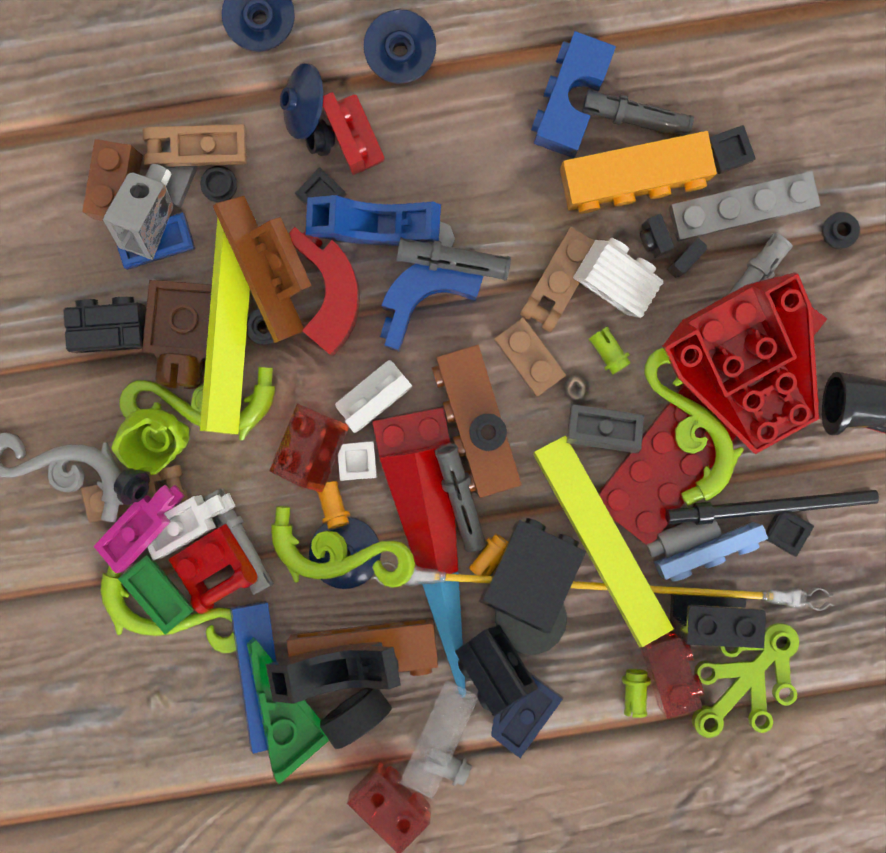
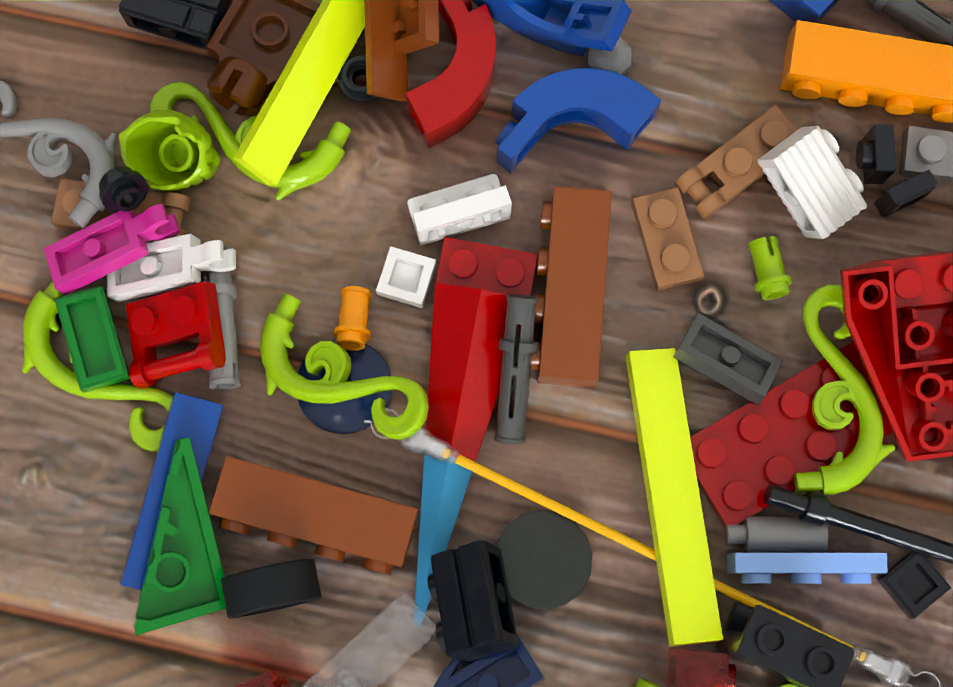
camera: 15 degrees right, 10 degrees down
(309, 448) = (355, 235): clear red brick -> none
(333, 670) = (268, 509): black arch -> none
(452, 258) = (621, 76): dark grey pin -> none
(489, 557) = (524, 459): light orange pin -> none
(500, 432) = (578, 310): black plate -> none
(533, 575) = (567, 502): black panel -> none

